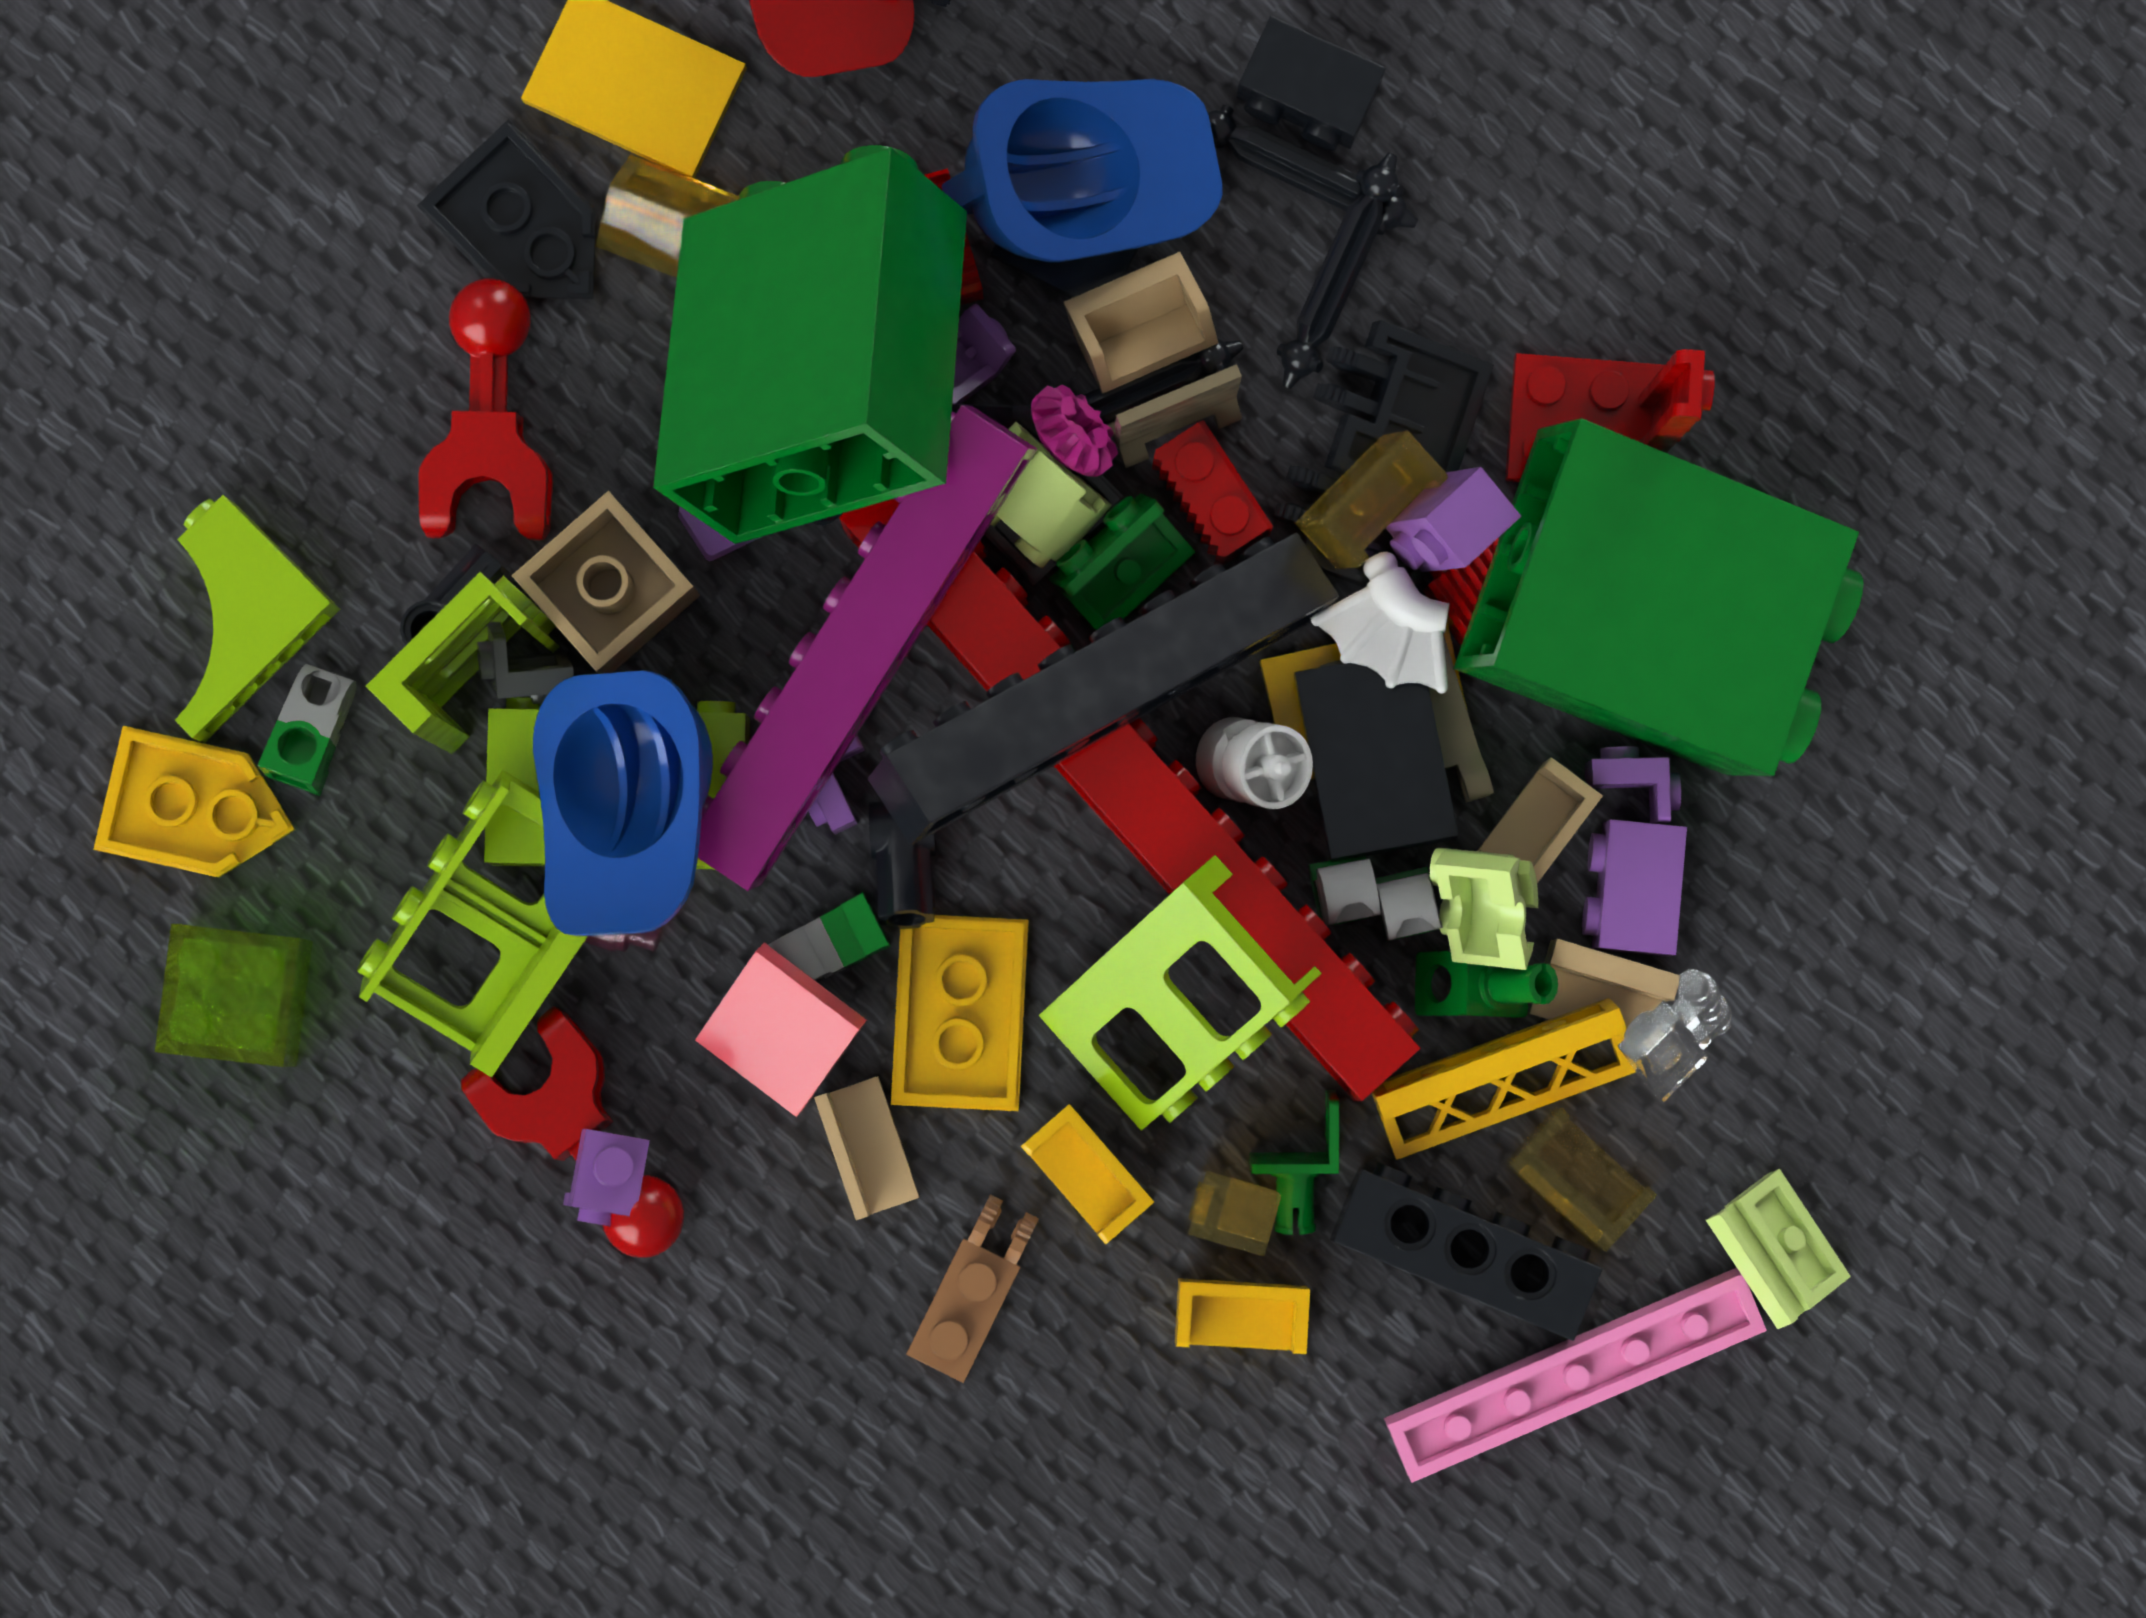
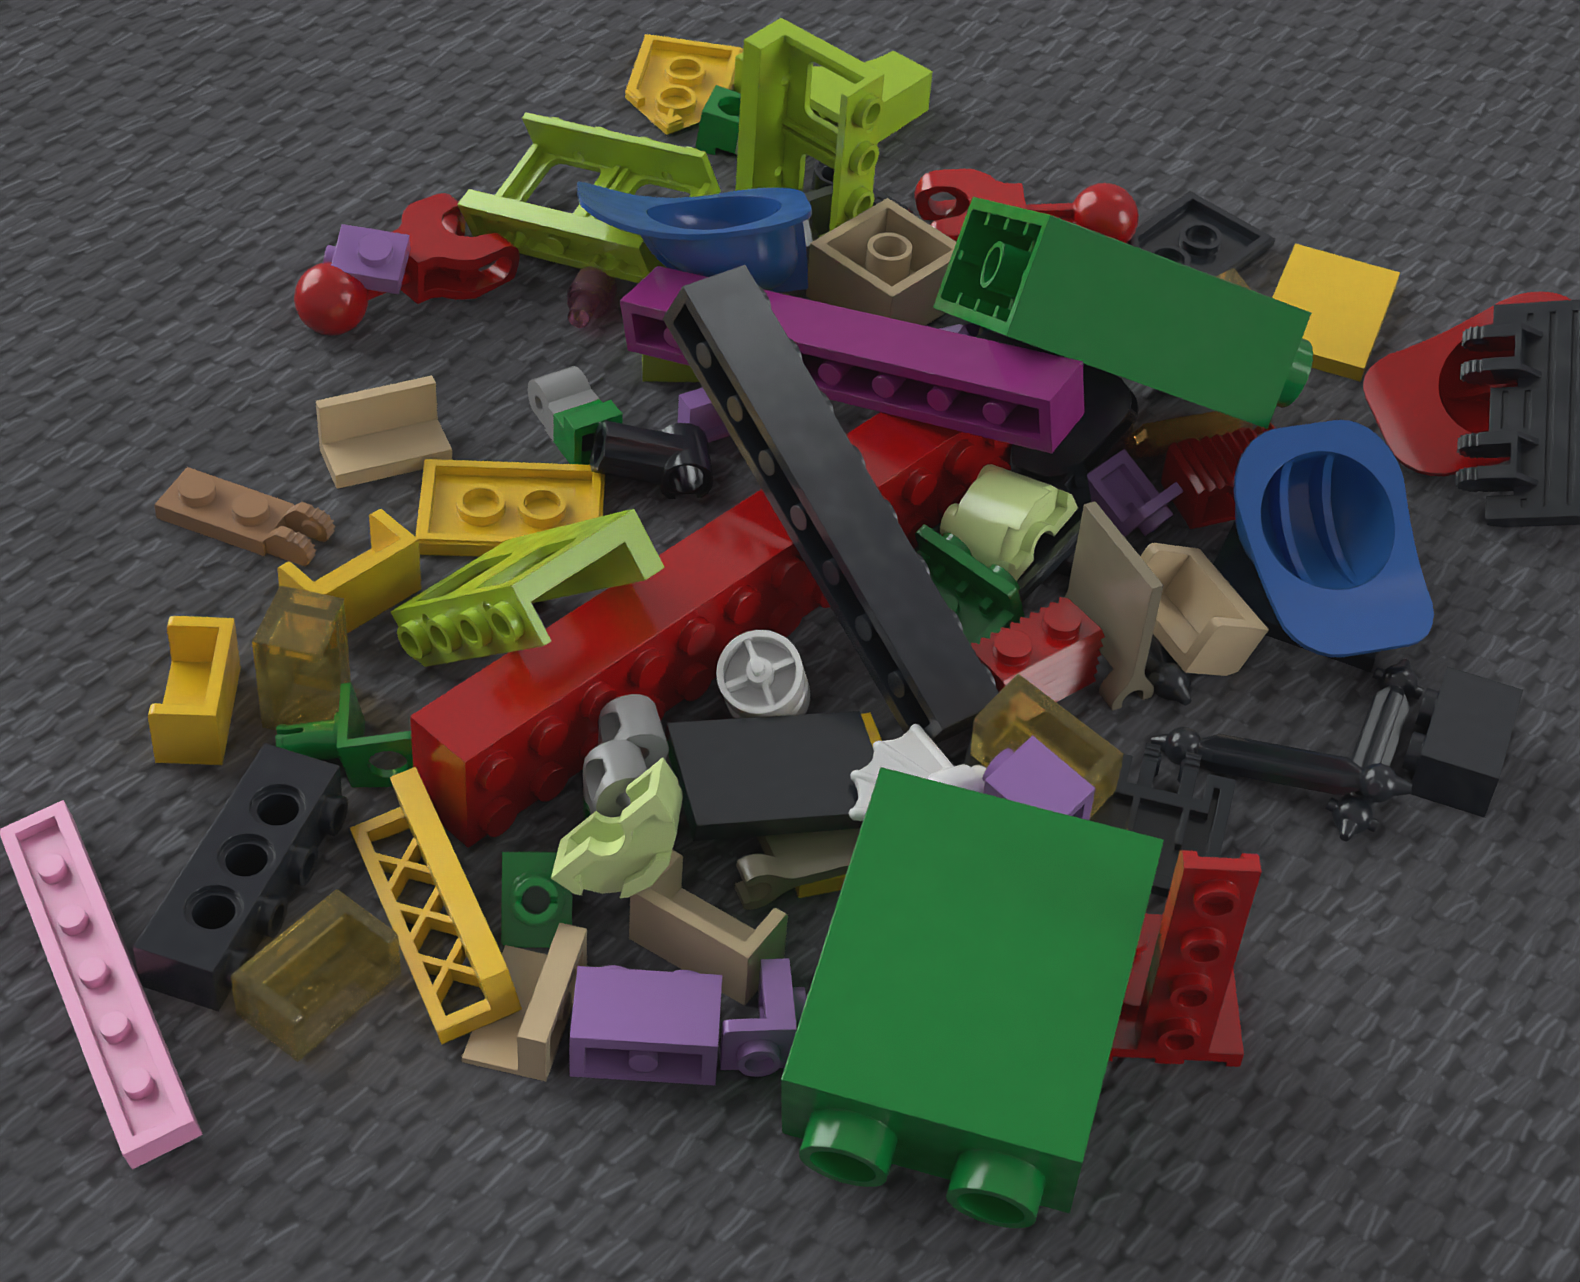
camera: 85 degrees right, 40 degrees down
(233, 995) = (525, 75): clear neon green brick -> none
(780, 1029) = (500, 375): coral tile -> none
(1073, 431) = (1056, 521): dark pink gear -> none
(1671, 1040) = (457, 1031): clear plate -> none
(1778, 1248) = (219, 1163): yellowish green plate -> none

